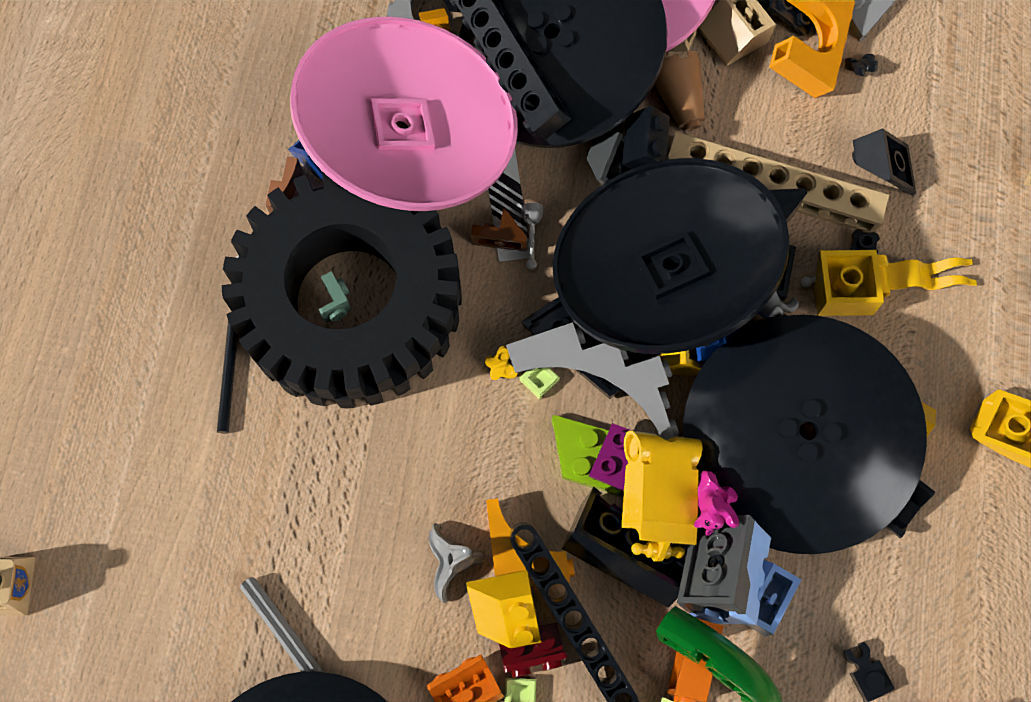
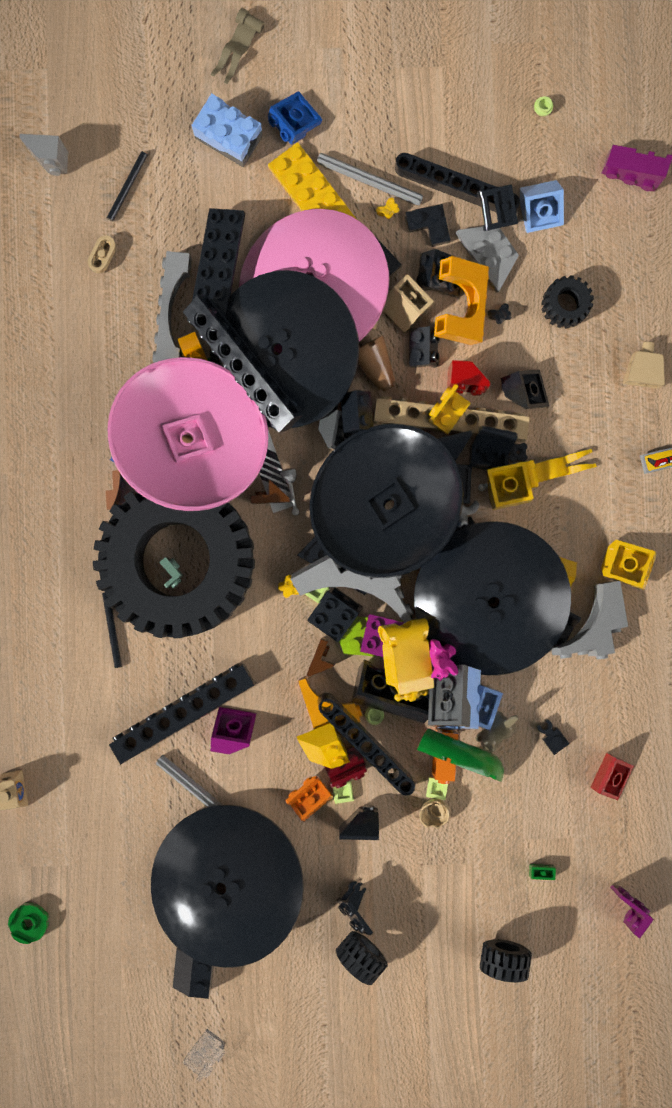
camera: 10 degrees left, 15 degrees up
(193, 545) = (125, 752): none -> black brick
(367, 559) = (232, 730): none -> magenta slope
(451, 559) = (284, 721): light grey piece -> none
(520, 483) = (318, 664): none -> reddish brown slope
(559, 415) = (335, 613): none -> black bracket
(592, 581) = (374, 716): none -> yellowish green plate
(750, 85) = (423, 347): none -> black bracket
(776, 157) = (450, 410): none -> yellow bracket
(788, 642) = (501, 729): none -> dark tan animal
(807, 130) = (467, 378): none -> red slope
(830, 222) = (491, 448): none -> black bracket
(969, 49) = (574, 288): none -> black tyre
(970, 504) = (606, 617): none -> light grey arch

